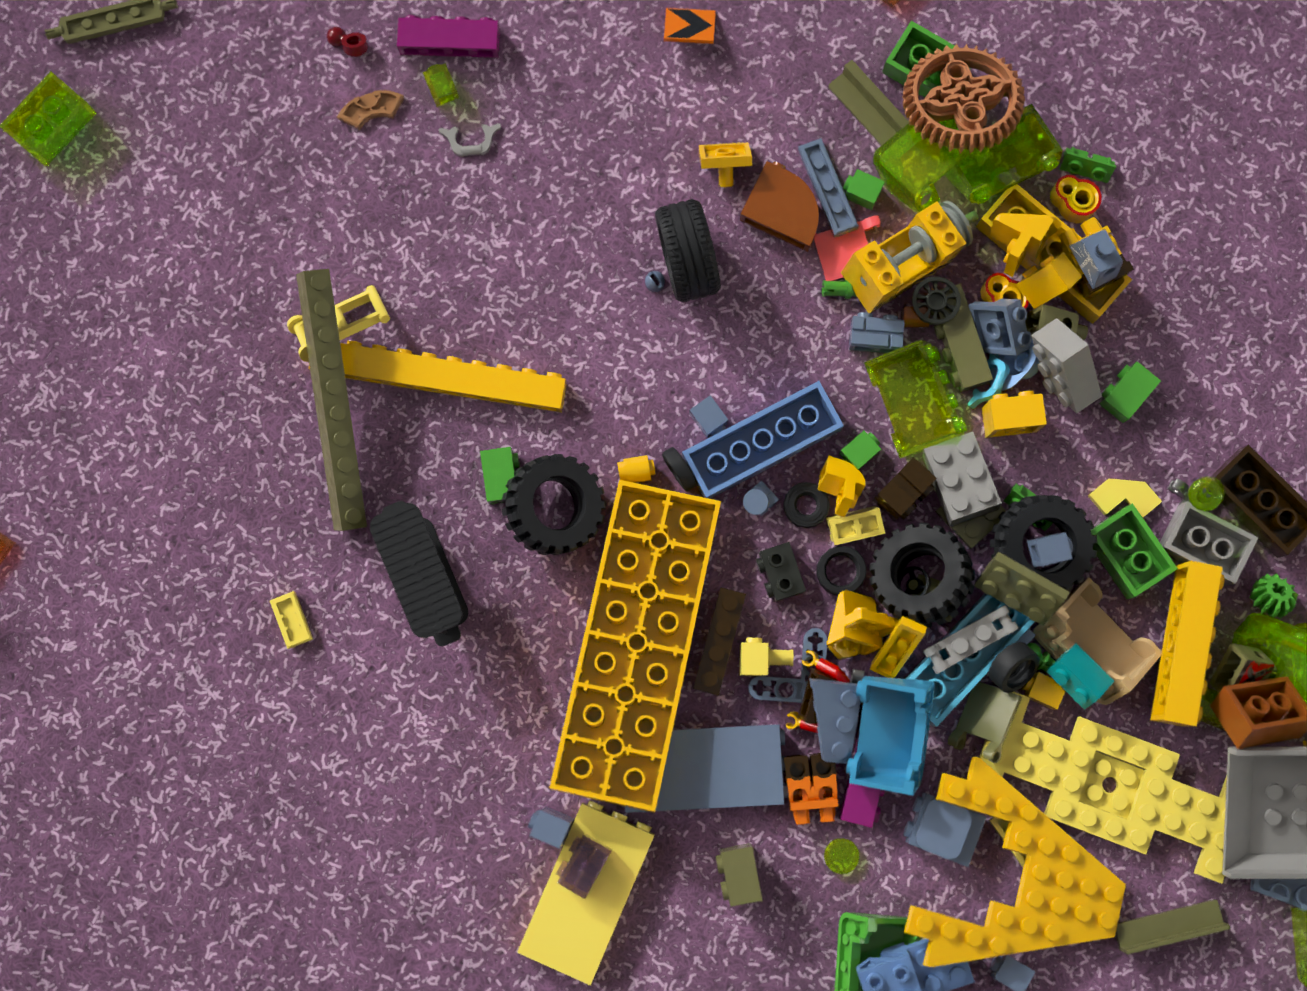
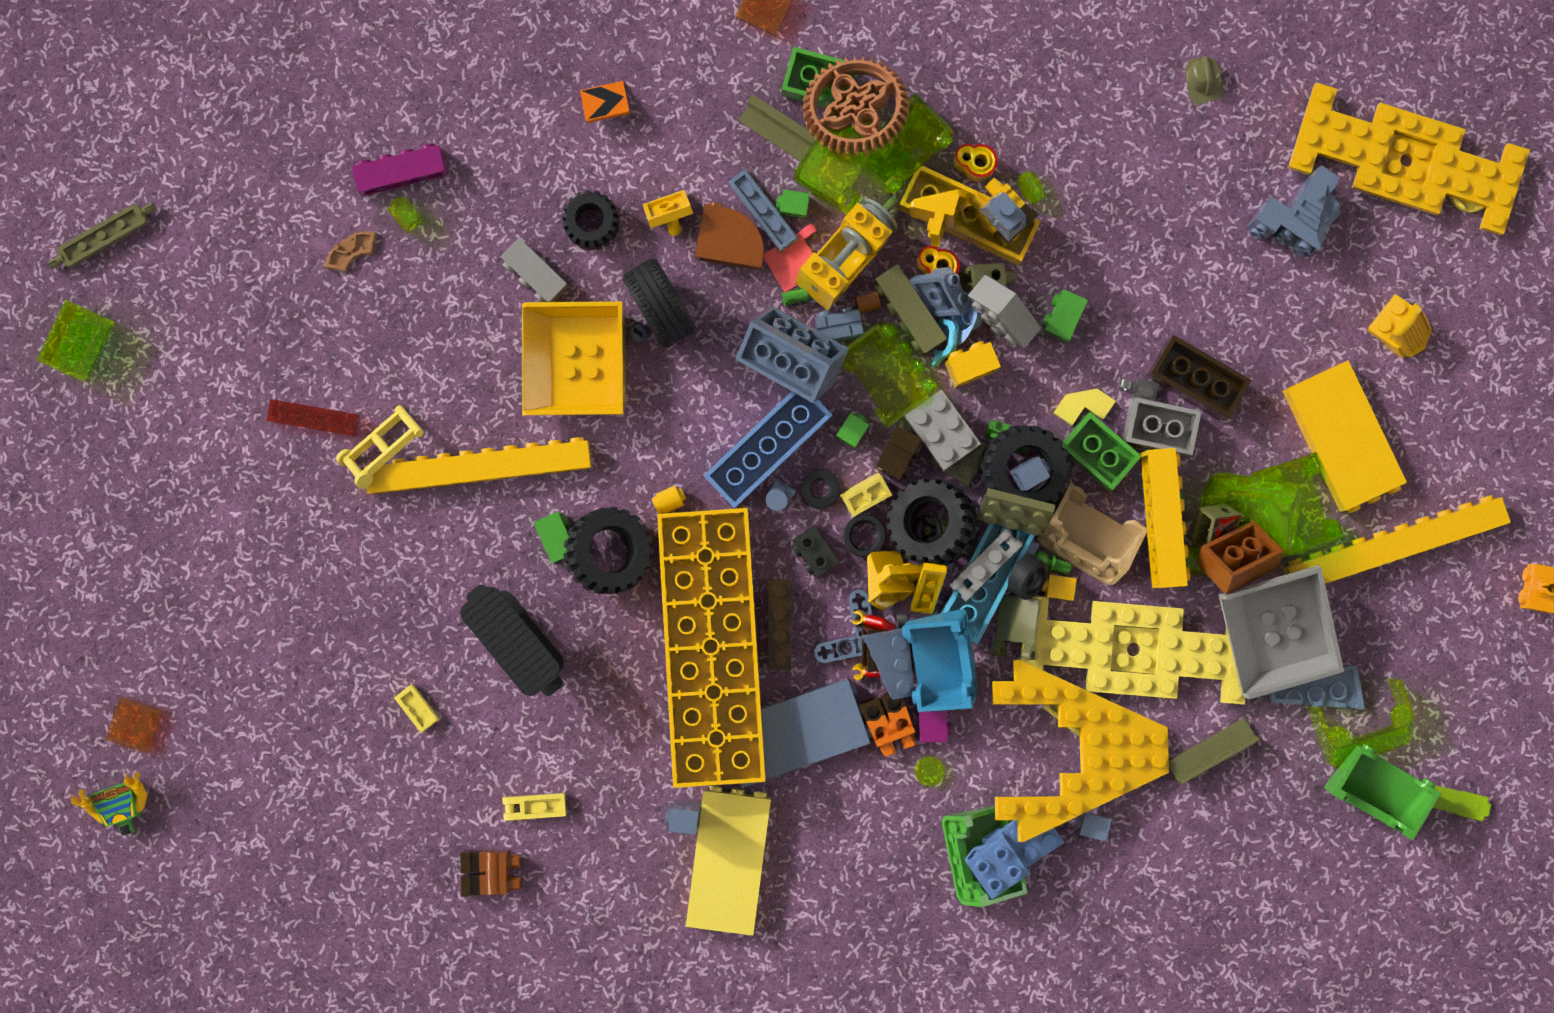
camera: 15 degrees left, 5 degrees up
(263, 267) = (312, 417): none -> clear red plate
(323, 832) = (497, 872): none -> dark orange hips
(331, 399) = (395, 516): olive brick -> none
(353, 44) = (319, 198): dark red plate -> none
(389, 767) = (535, 806): none -> light yellow plate
(480, 149) = (444, 265): light grey helmet -> none
(560, 184) = (533, 272): none -> light grey brick
(576, 285) = (573, 358): none -> yellow piece
(584, 865) = (720, 841): brick -> none
(638, 125) = (577, 207): none -> black tyre
(679, 469) = (705, 489): black tyre -> none
(709, 417) = (718, 438): sand blue brick -> none
(740, 875) = (849, 810): olive brick -> none
(757, 657) = (815, 628): light yellow brick -> none
(818, 346) = (792, 354): none -> sand blue brick
(843, 481) = (844, 460): yellow brick -> none
(936, 300) = (881, 285): pearl dark grey wheel -> none
(944, 829) = (1007, 726): sand blue brick -> none
(1048, 280) = (970, 242): yellow brick -> none
(1080, 676) = (1084, 569): teal brick -> none
(1096, 168) = (988, 129): bright green hinge -> none
(1130, 242) = (1031, 187): none -> clear neon green brick
(1200, 500) = (1145, 392): clear neon green head -> none
(1274, 596) = (1227, 455): bright green gear -> none

